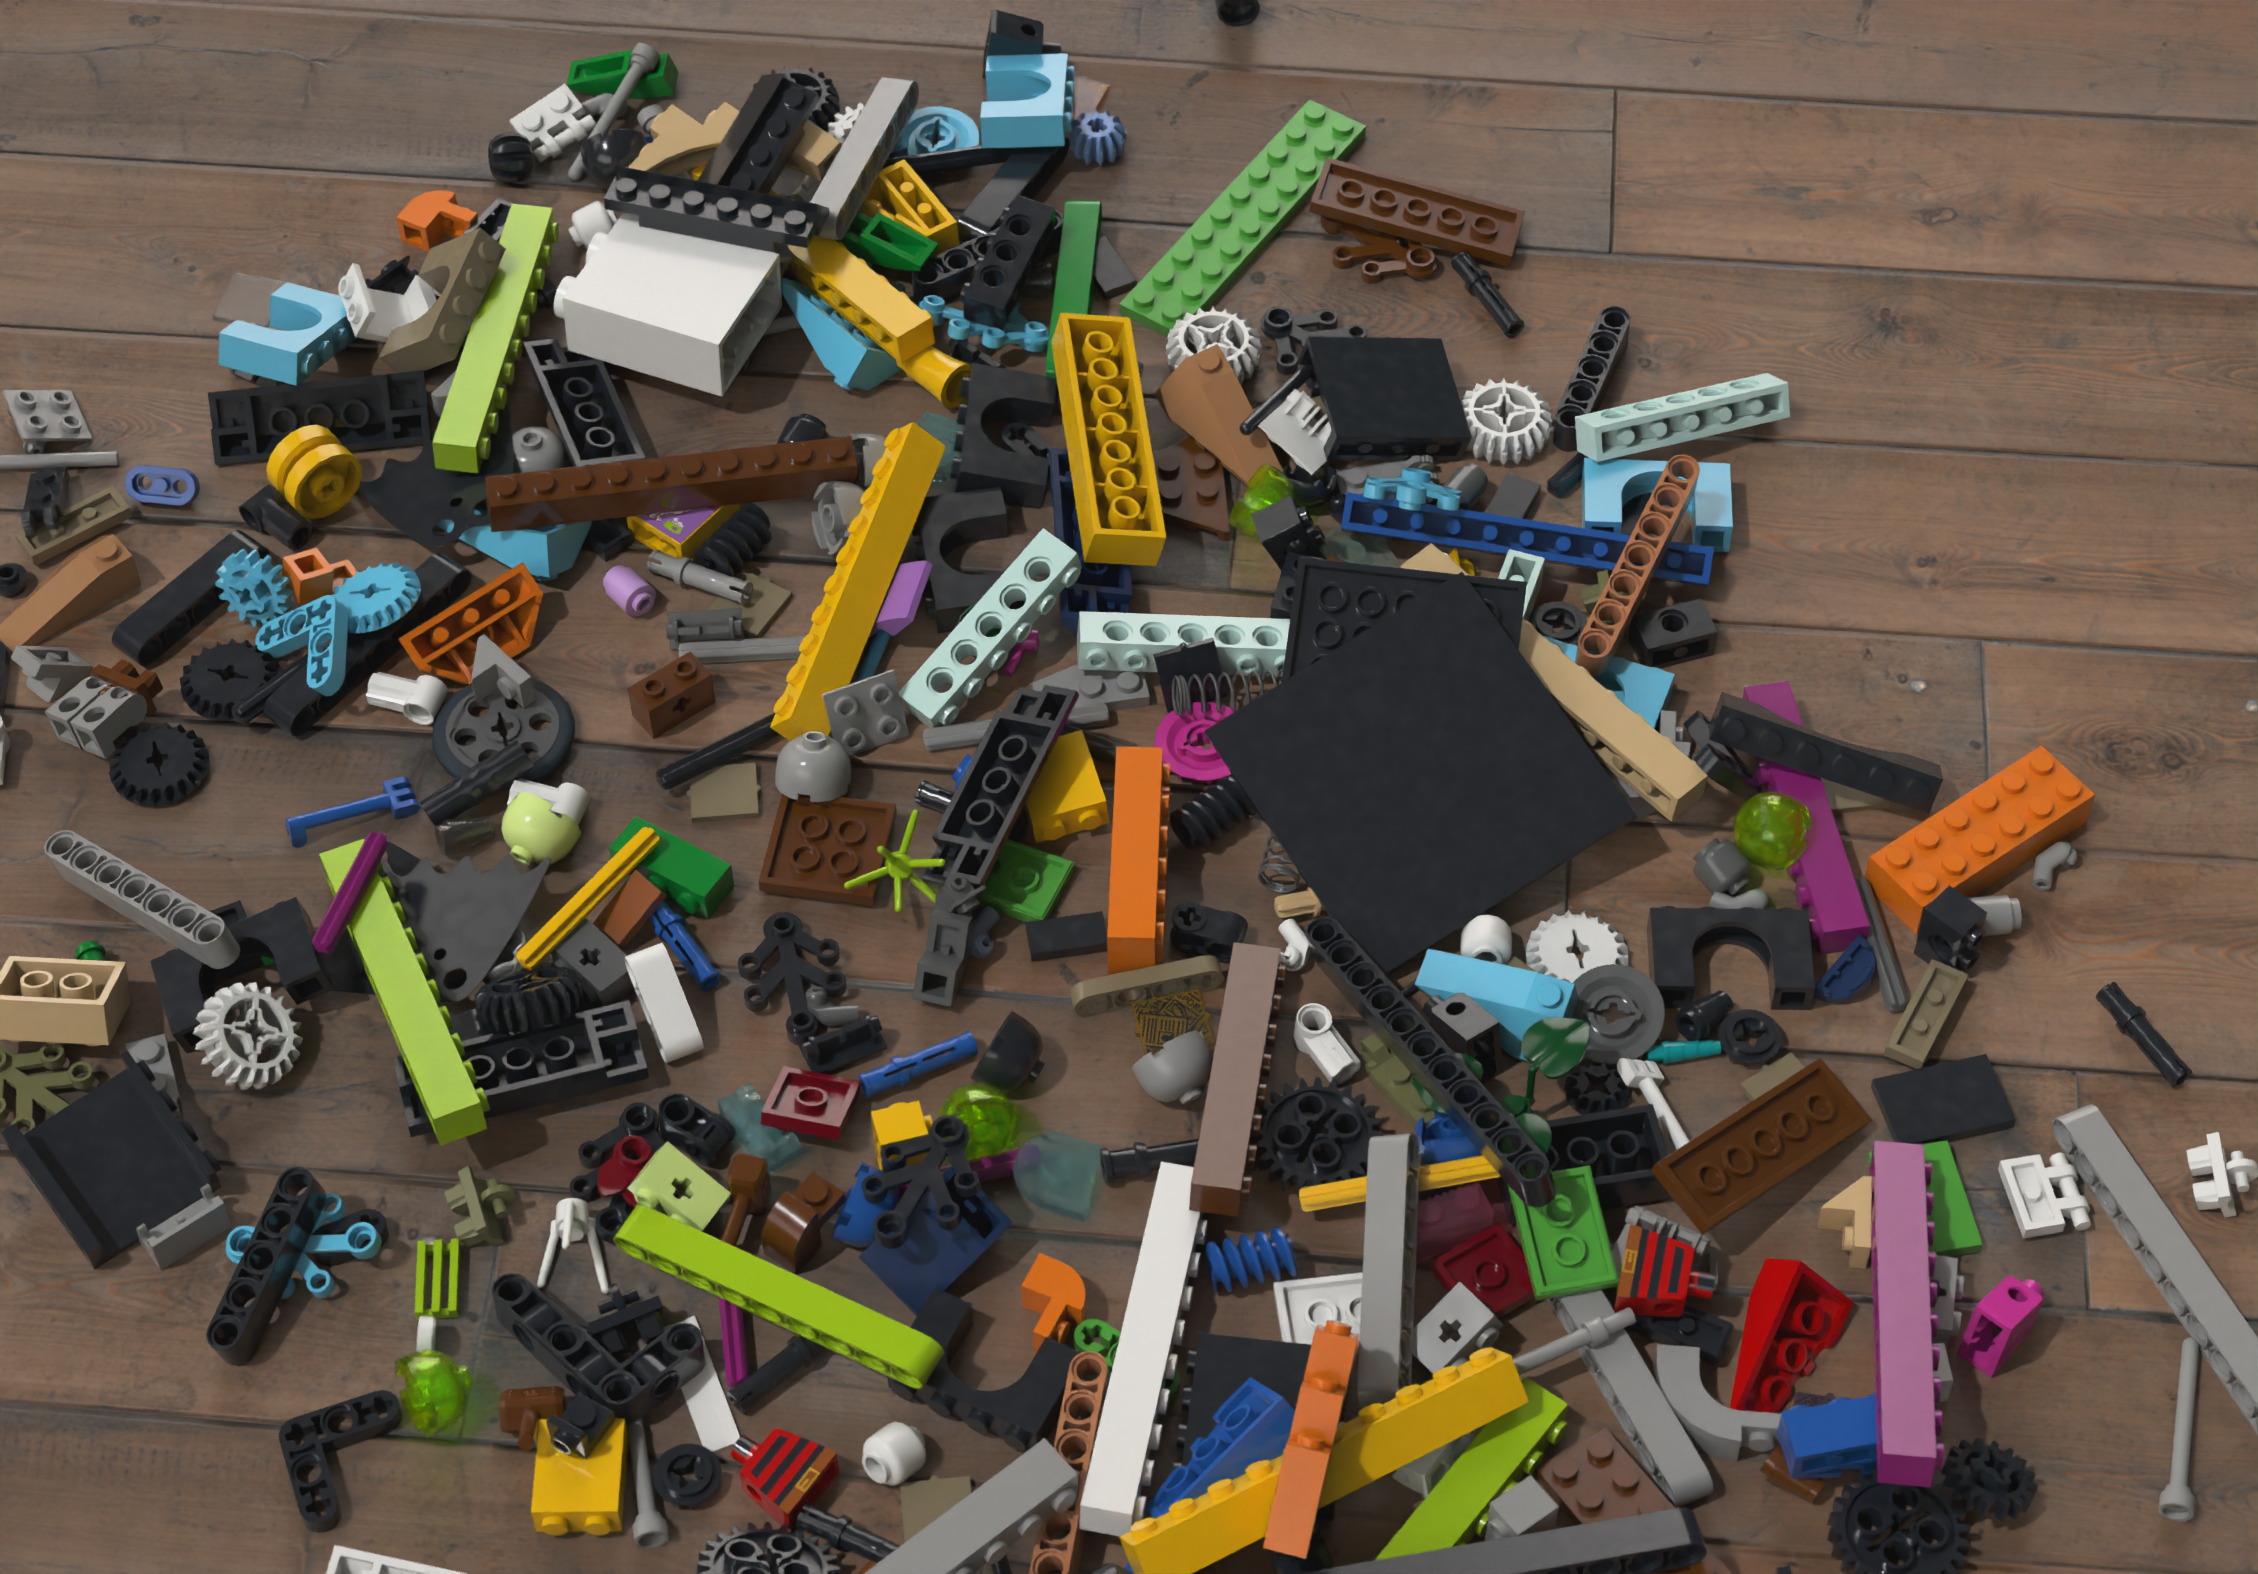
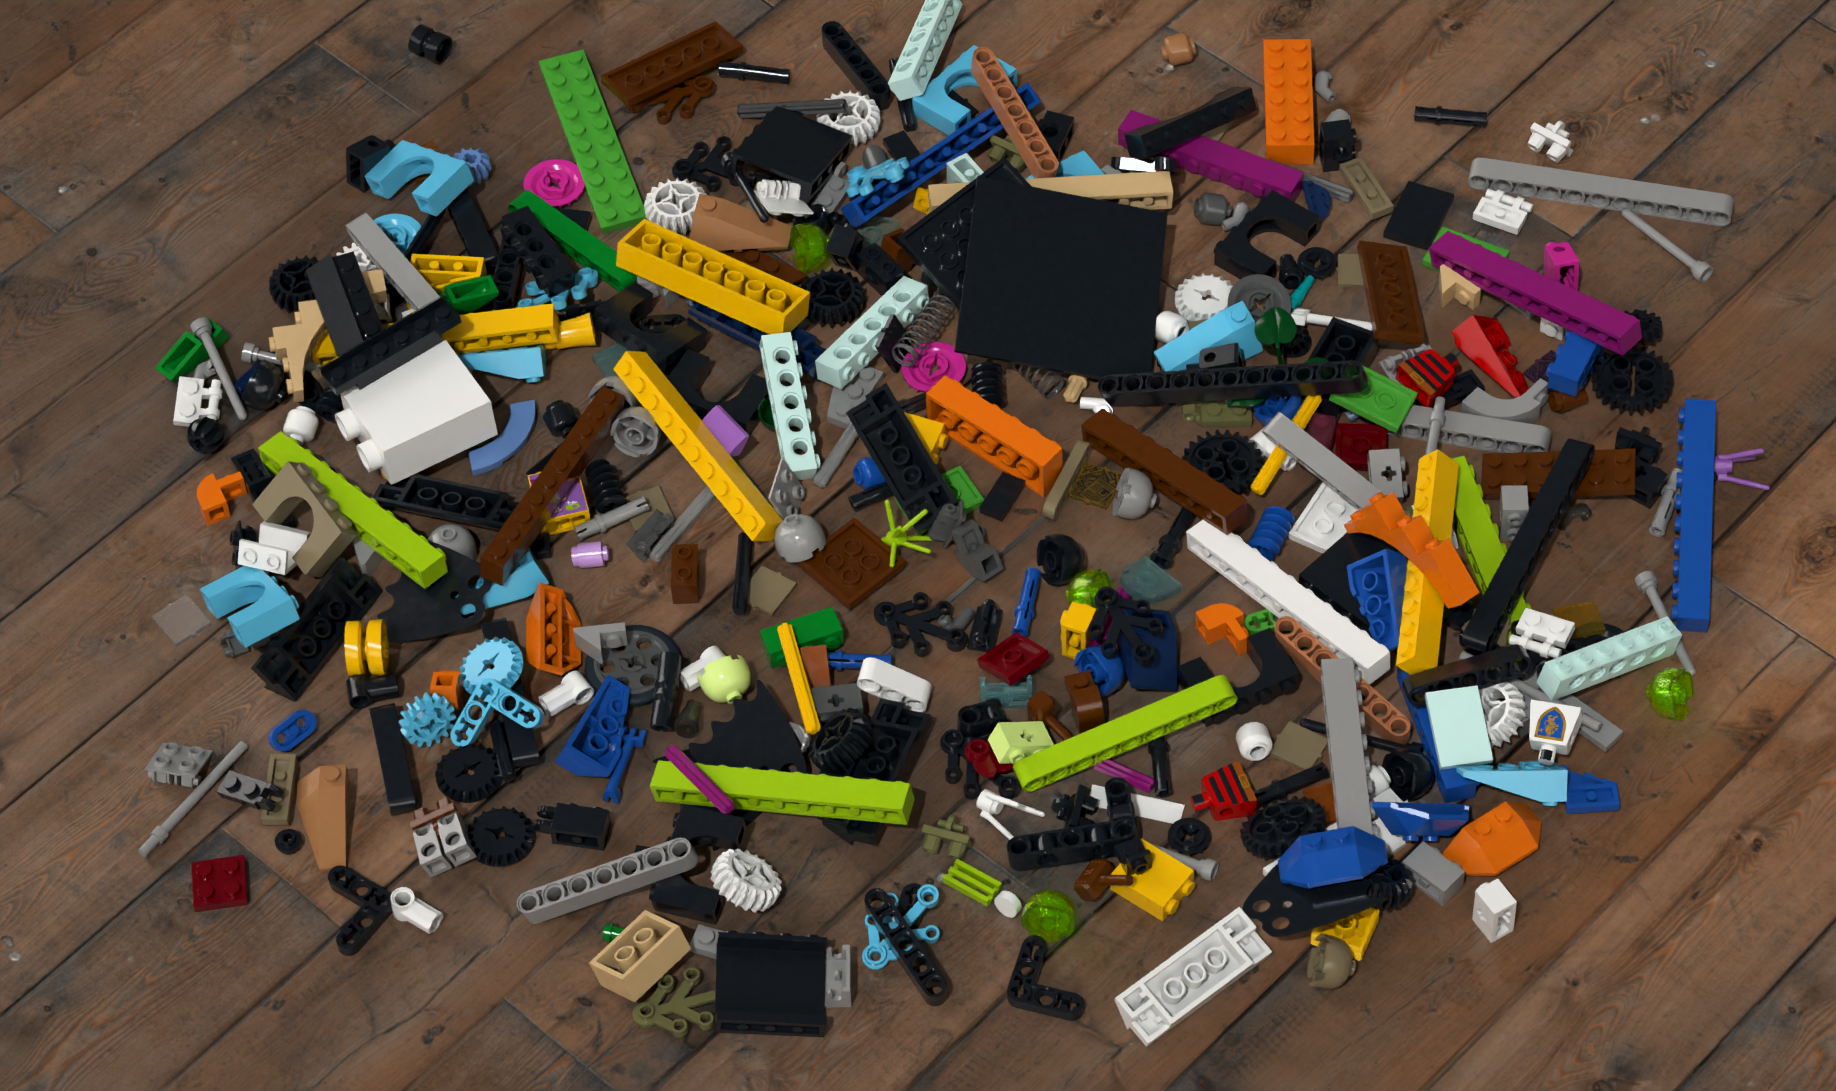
camera: 50 degrees left, 0 degrees up
(50, 669) = (382, 854): light grey slope -> none
(222, 825) = (575, 825): none -> black hinge
(360, 758) = (598, 735): none -> blue wedge
(737, 419) = (509, 442): none -> medium blue tile
(1135, 210) = (559, 172): none -> dark pink gear
(1210, 931) = (1062, 430): black piece -> none
(1214, 575) = (832, 291): none -> black gear
(1324, 1045) = (1162, 428): white piece -> none
(1459, 359) = (813, 107): none -> black axle
(1771, 829) = (1214, 172): clear neon green cylinder -> none
(1945, 671) = (1178, 49): none -> medium nougat head

